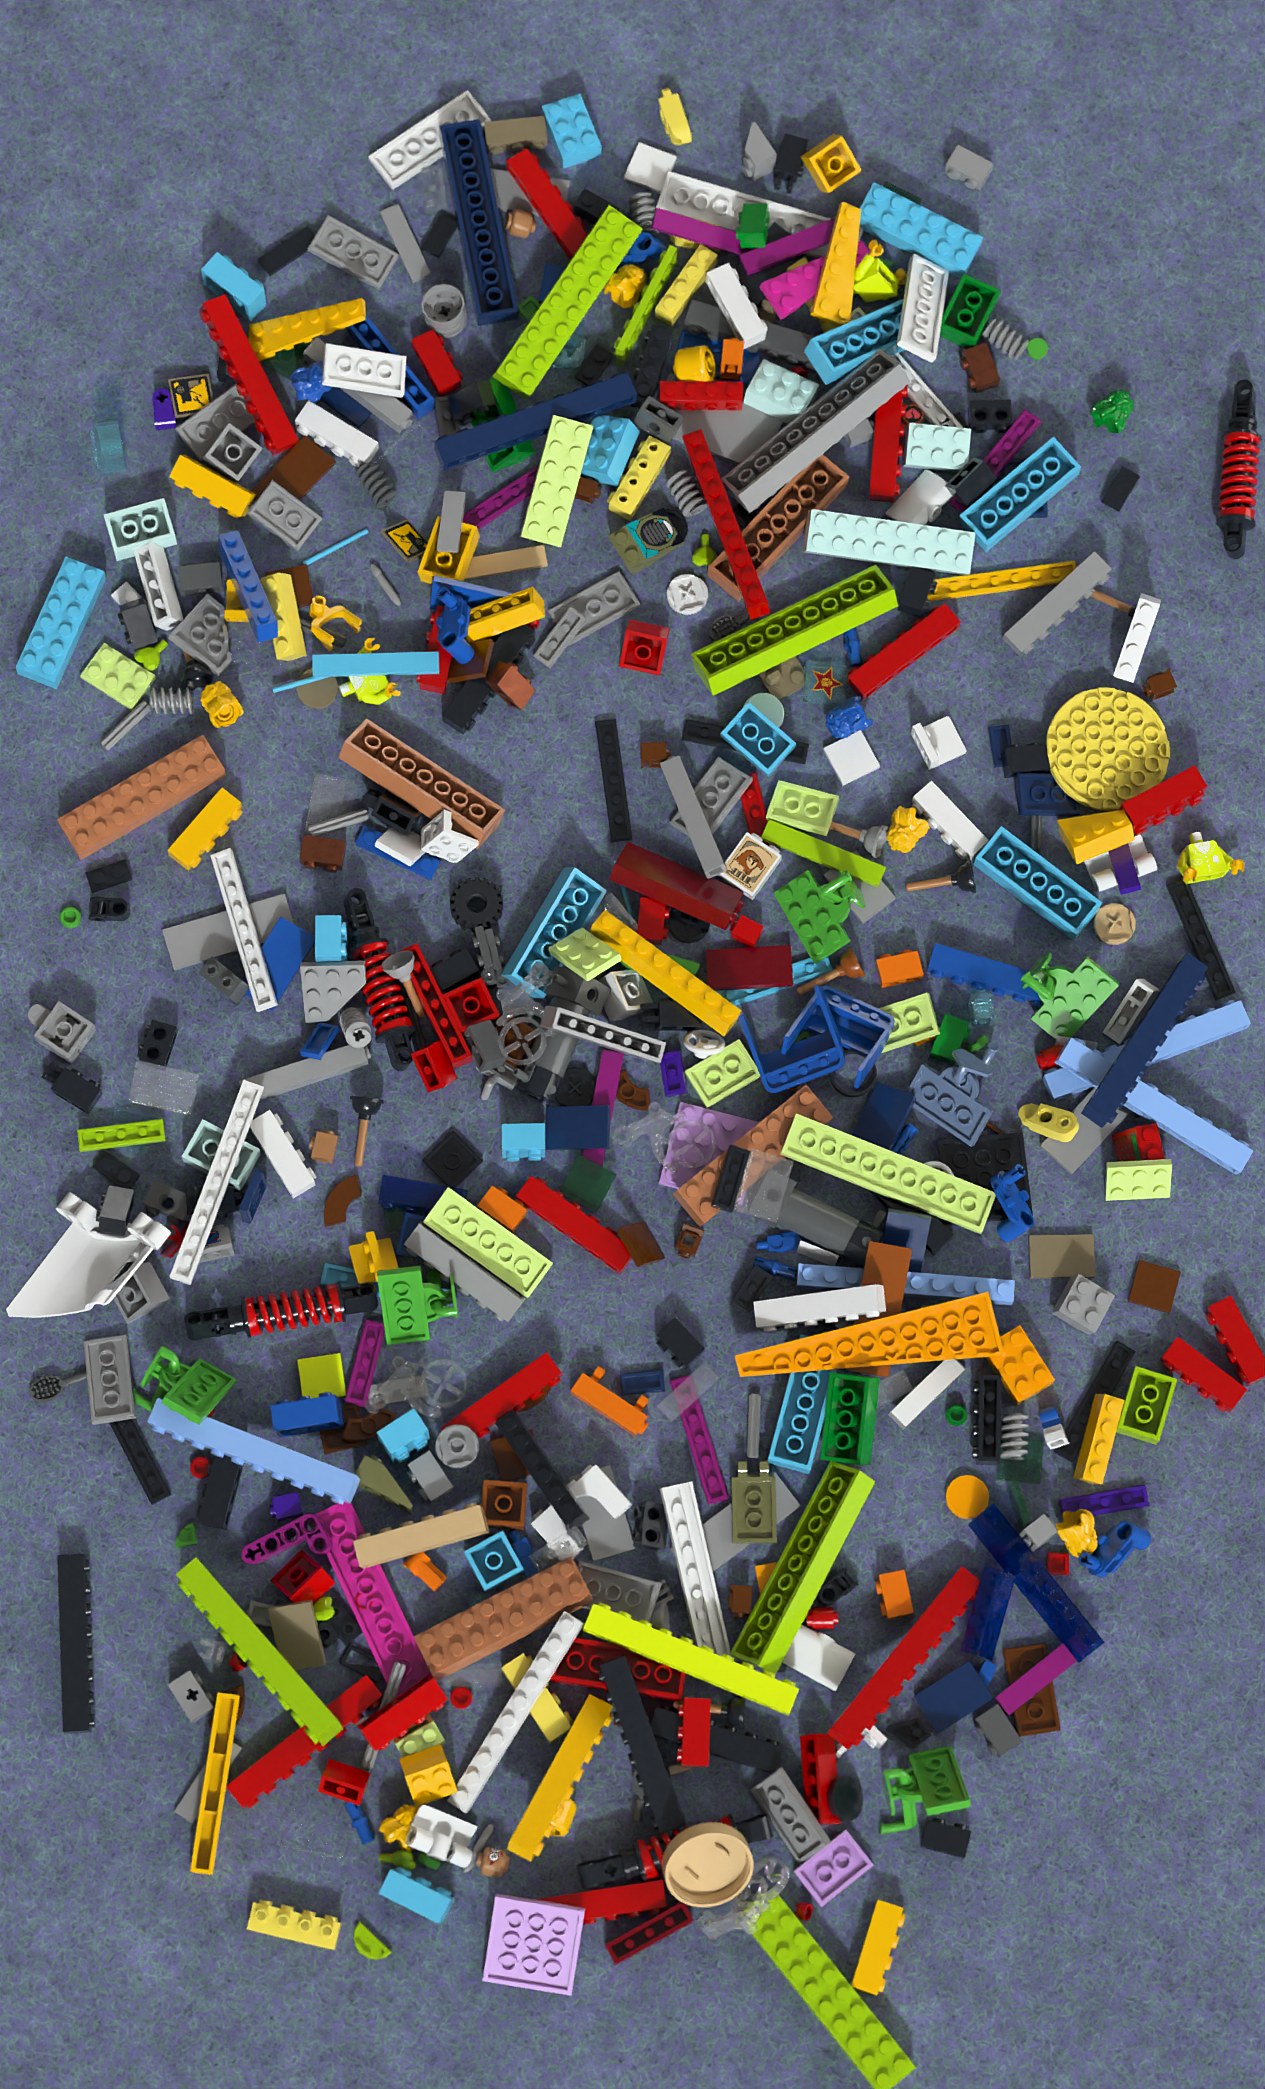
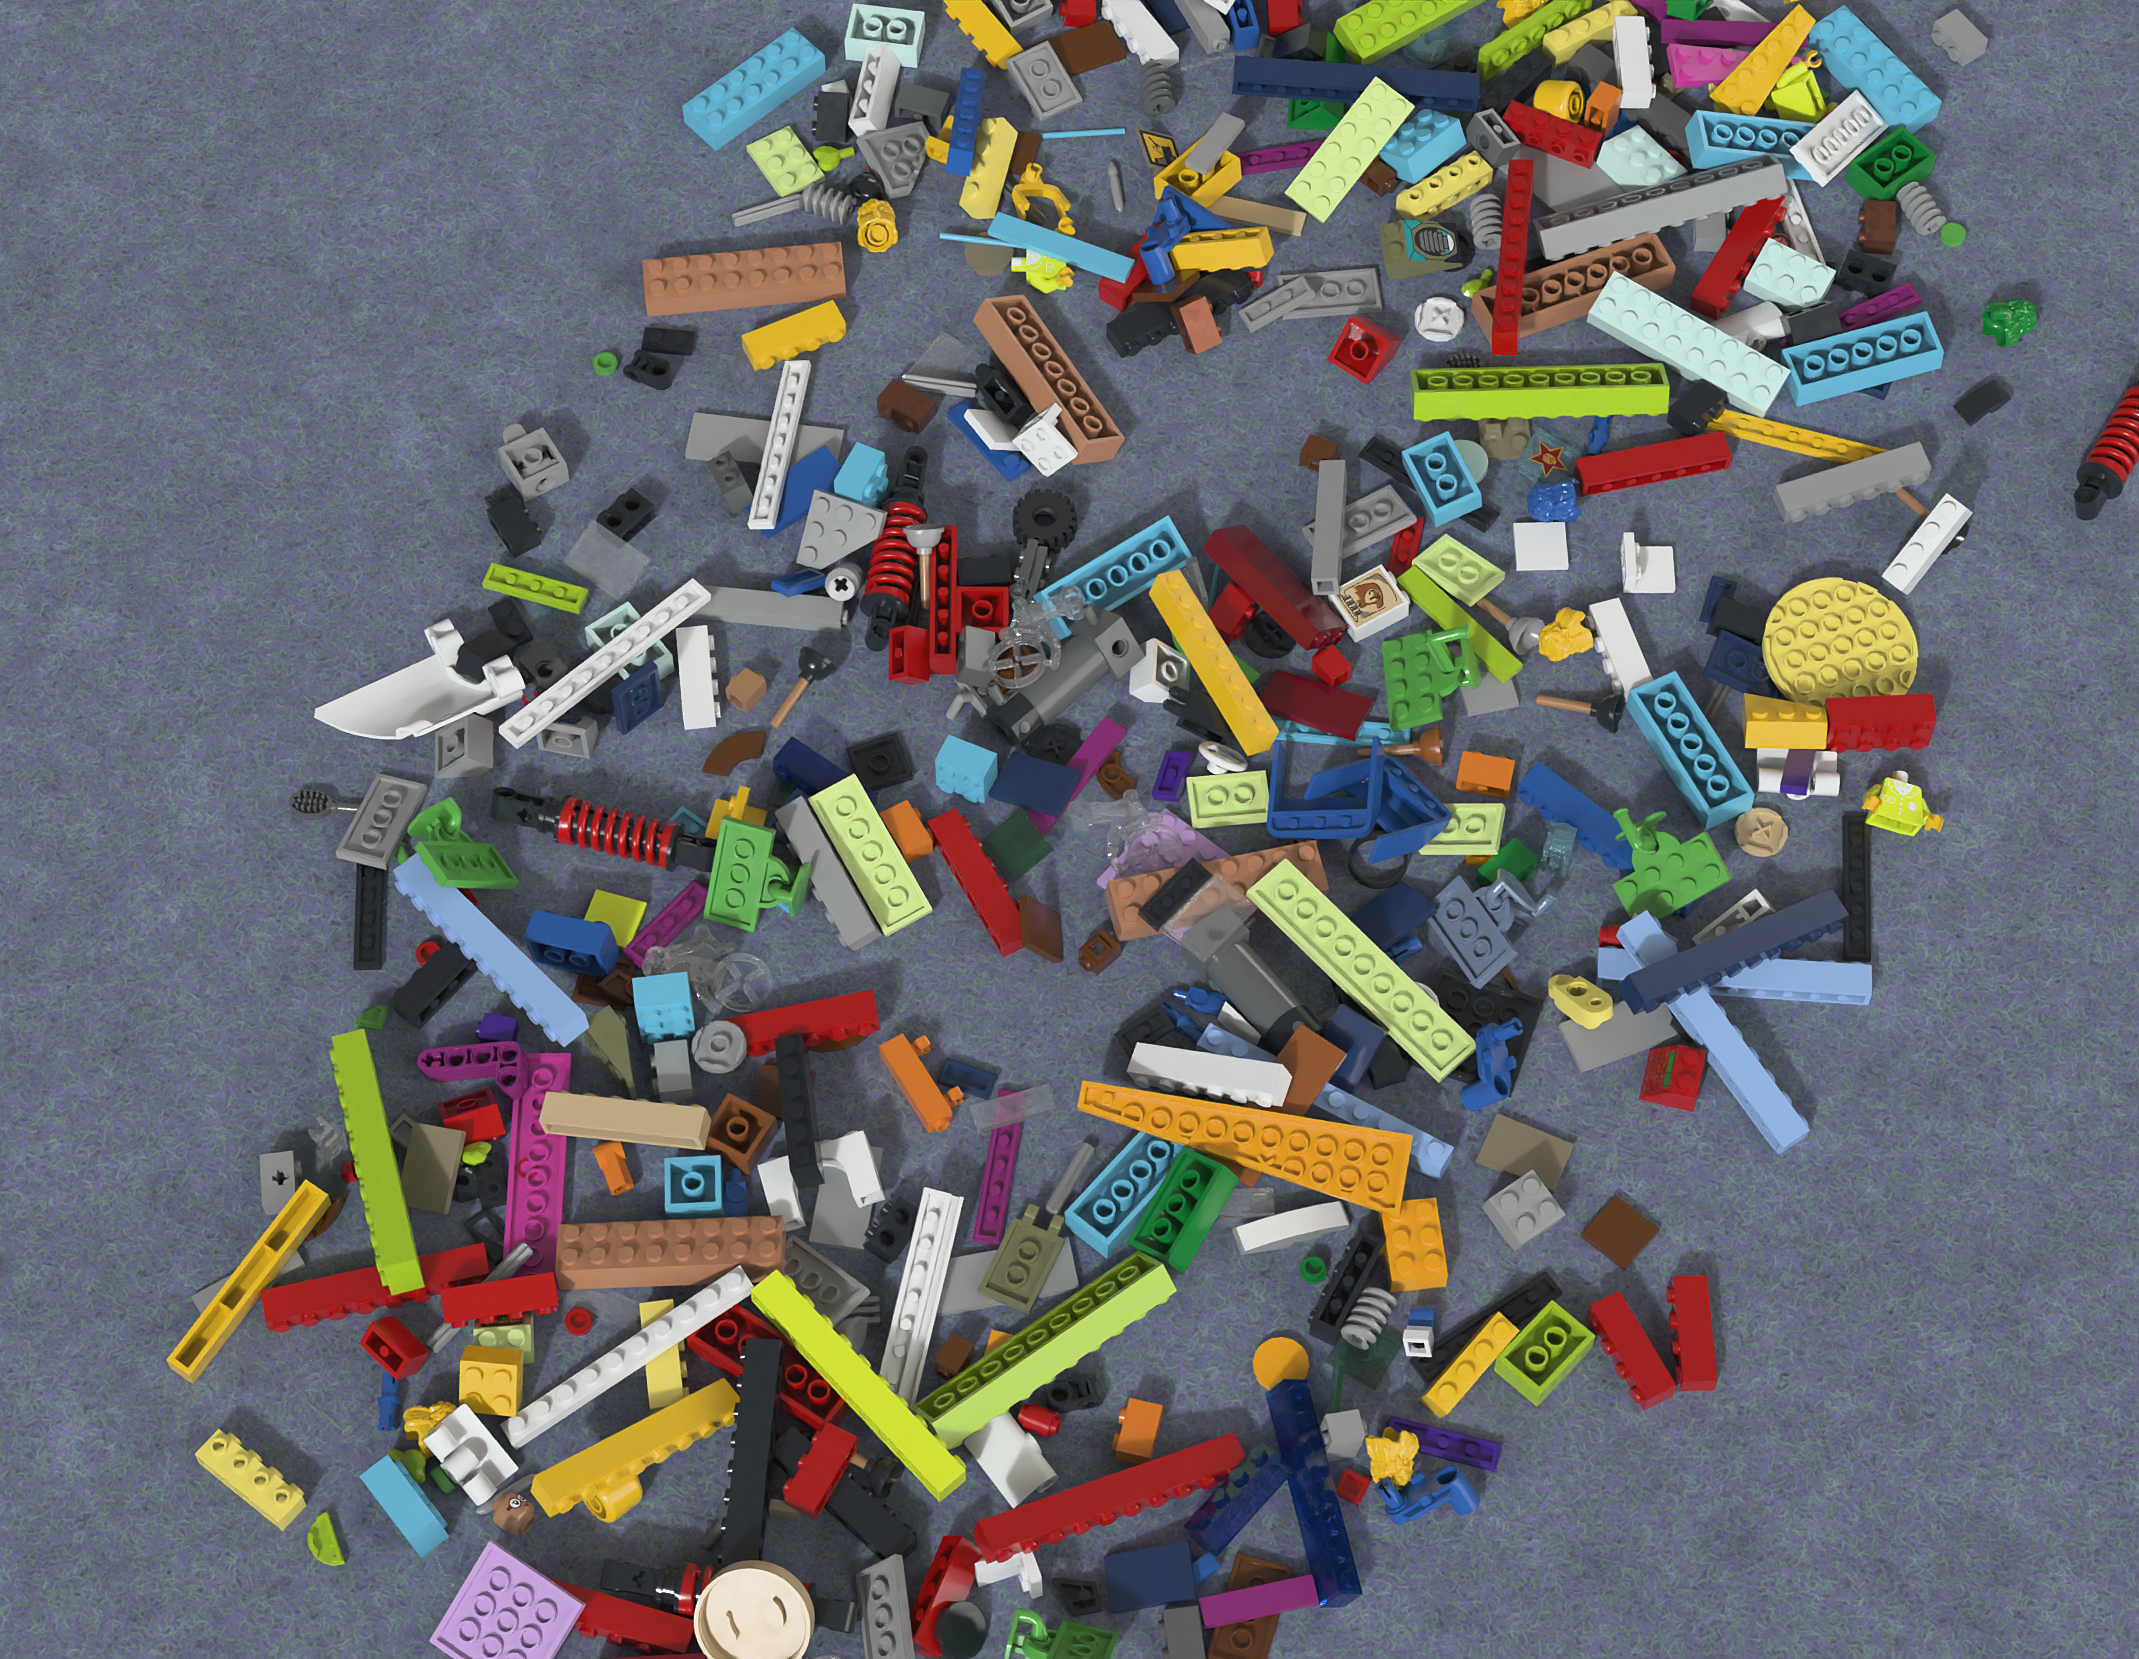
camera: 30 degrees right, 15 degrees down
(74, 1643) = (185, 1072): black brick -> none
(558, 1549) = (775, 1200): clear tile -> none
(584, 954) = (1132, 601): yellowish green plate -> none
(603, 1034) = (1110, 690): light grey brick -> none
(613, 780) = (1261, 464): black tile -> none
(679, 1344) = (1030, 1054): black brick -> none
(980, 1043) = (1538, 890): bright green tile -> none
(1138, 1179) = (1655, 1104): yellowish green plate -> none
(1159, 685) = (1932, 610): reddish brown window -> none

